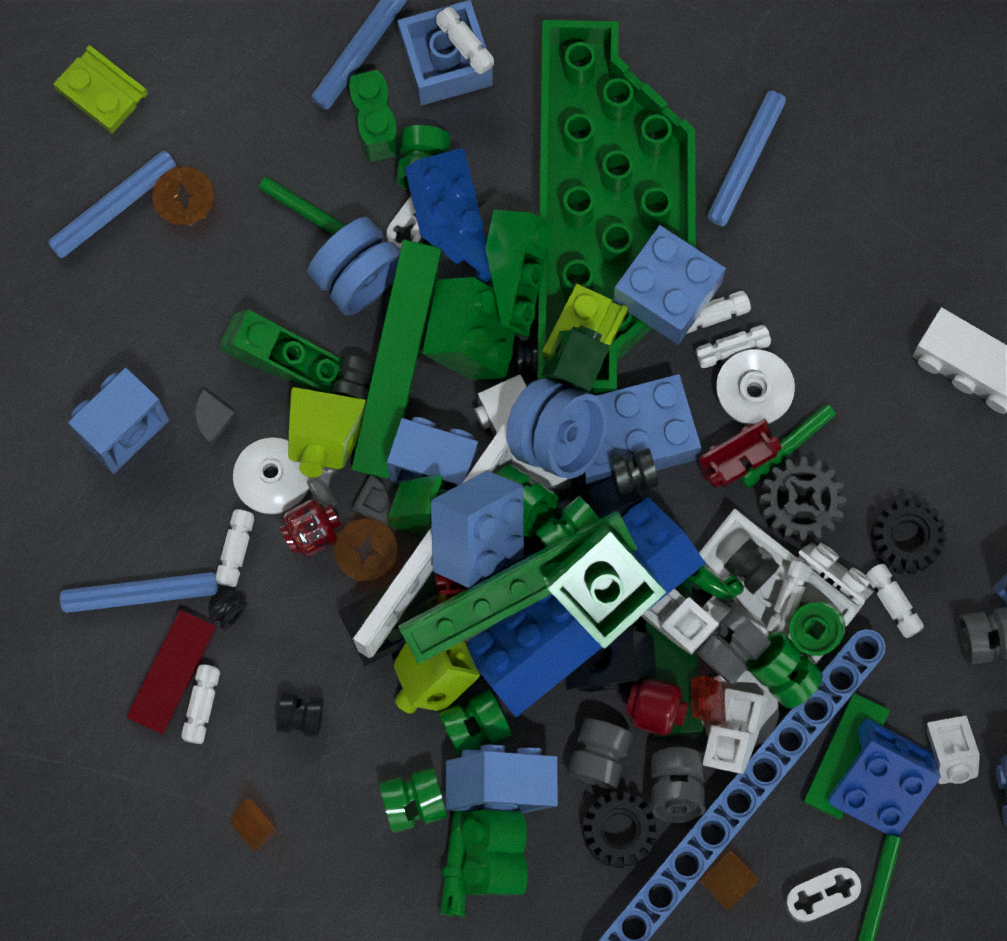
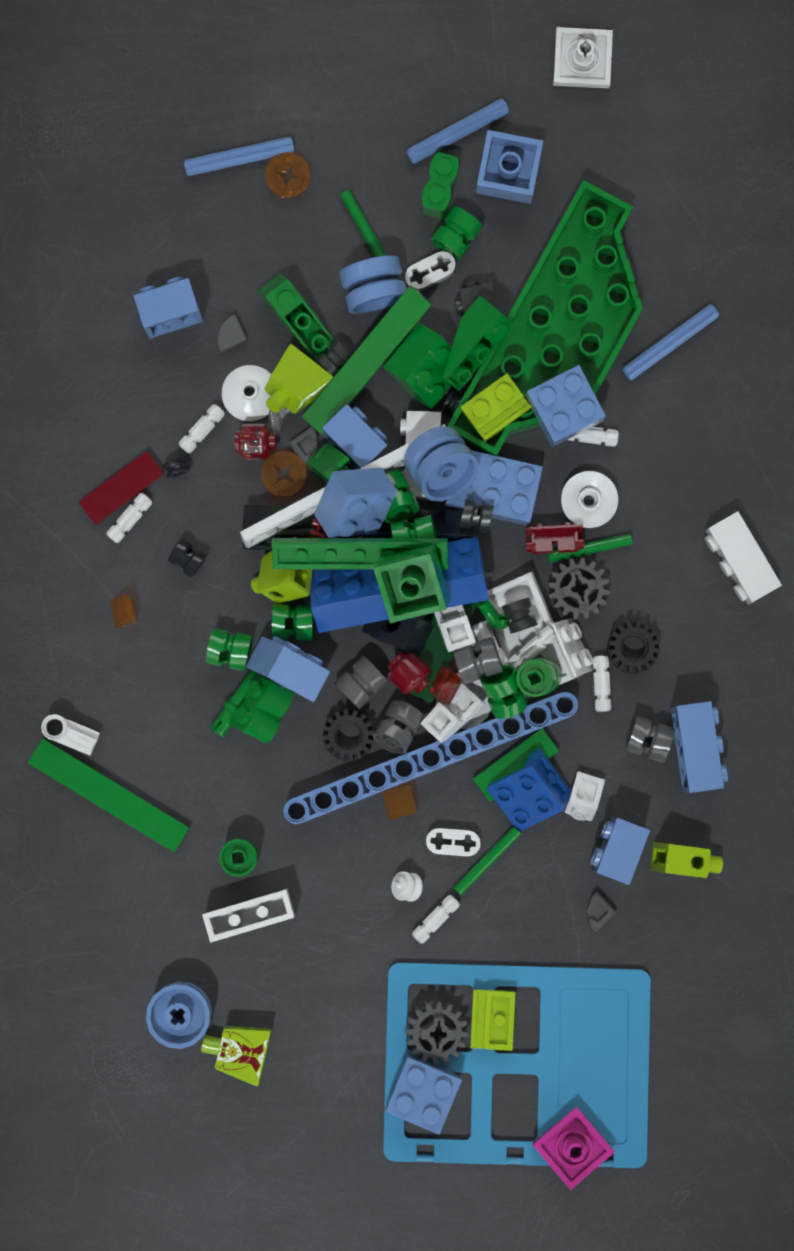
camera: 25 degrees right, 10 degrees up
(100, 89) = (271, 71): lime plate -> none
(138, 592) = (126, 425): medium blue axle -> none
(449, 209) = (451, 279): blue wing -> none
(464, 40) = (523, 168): white axle -> none
(576, 358) = (475, 426): dark green brick -> none
(727, 347) = (591, 463): white axle -> none

